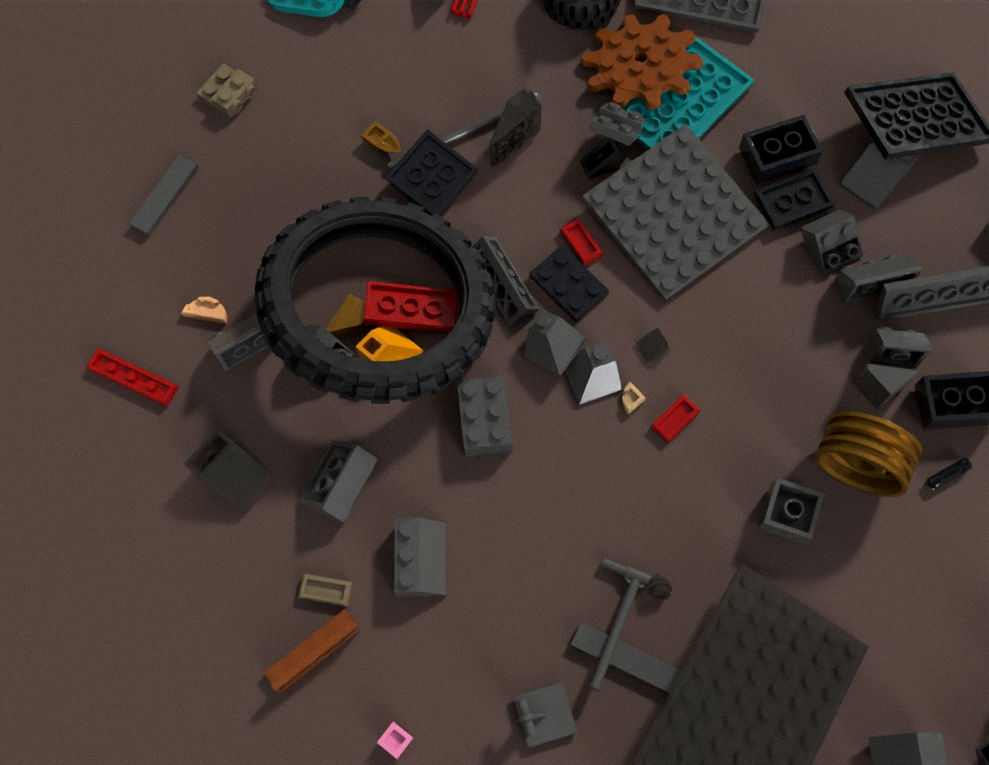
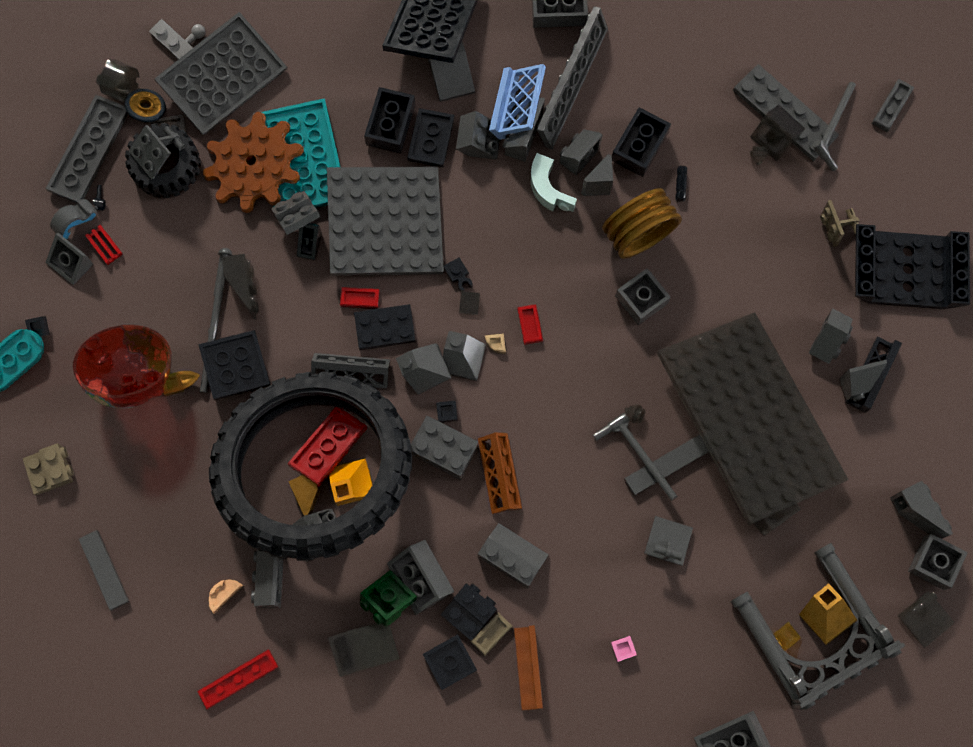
camera: 60 degrees left, 5 degrees up
(269, 566) = (449, 662): none -> black plate
(293, 461) = (386, 598): none -> dark green plate
(334, 552) = (469, 611): none -> black plate
(360, 91) = (133, 369): none -> clear red piece
(500, 490) = (503, 471): none -> dark orange fence
(524, 396) = (447, 411): none -> black plate
(675, 314) = (457, 272): none -> black plate
(840, 324) = (543, 189): none -> light aqua arch
(897, 238) = (506, 100): none -> light blue fence

